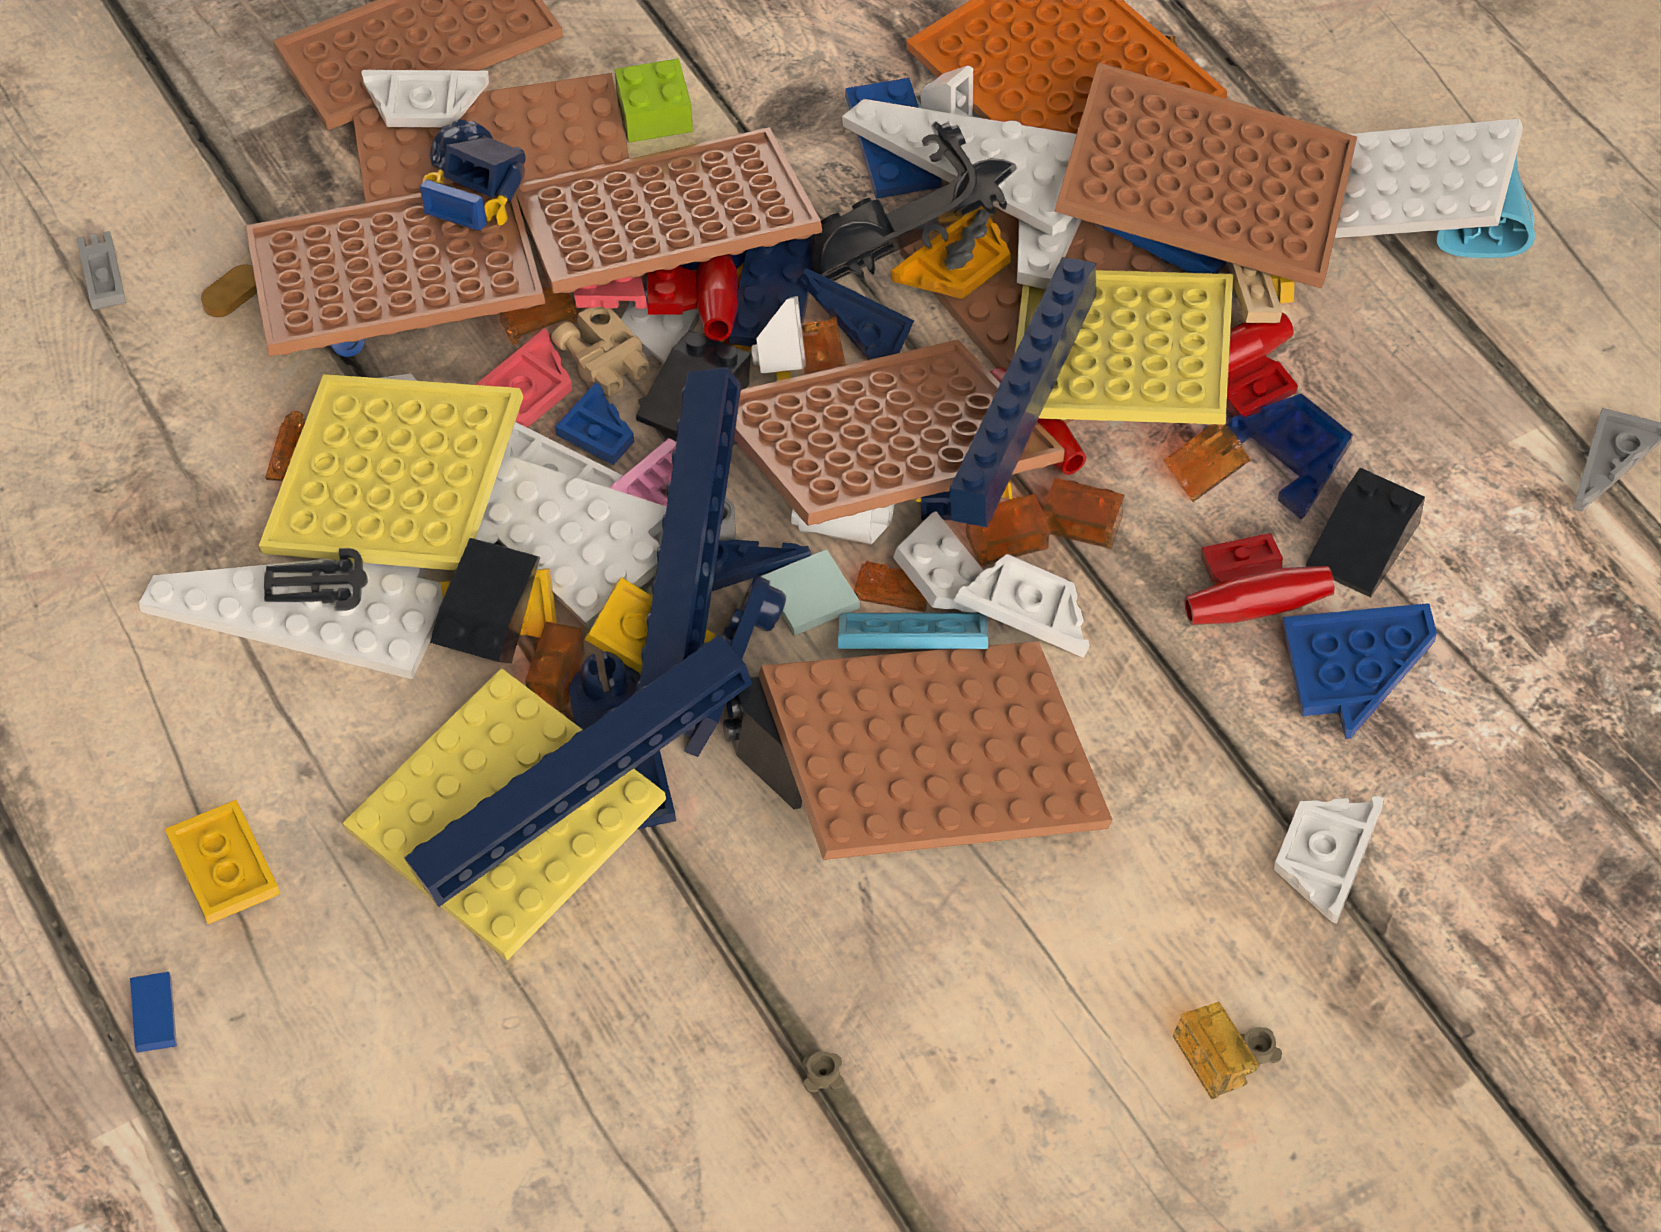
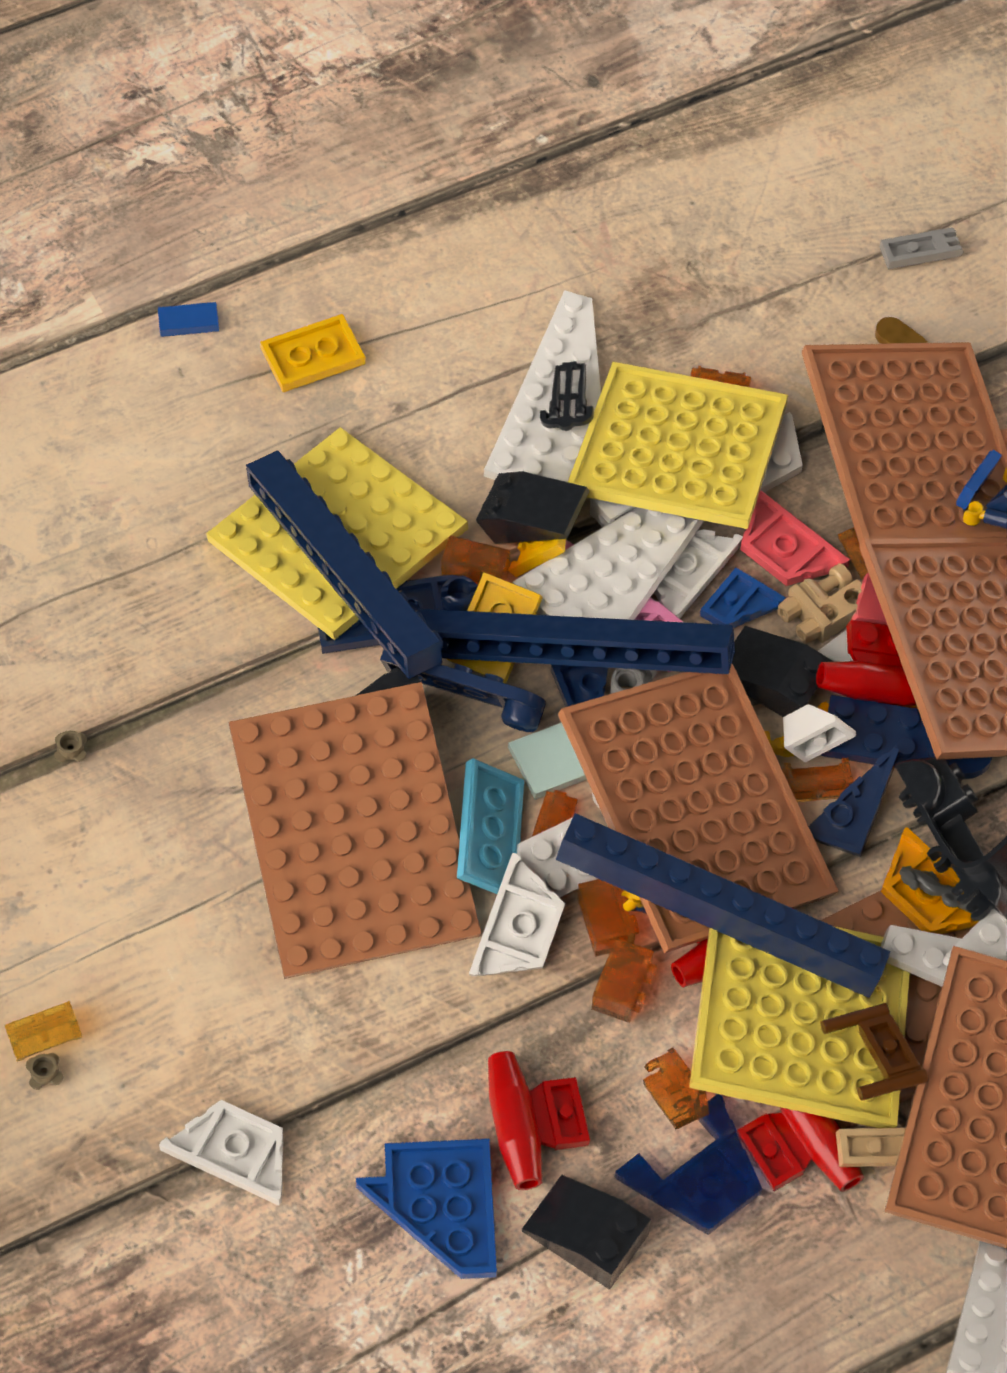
camera: 90 degrees right, 5 degrees up
(1162, 269) = (886, 1047): none -> reddish brown plate

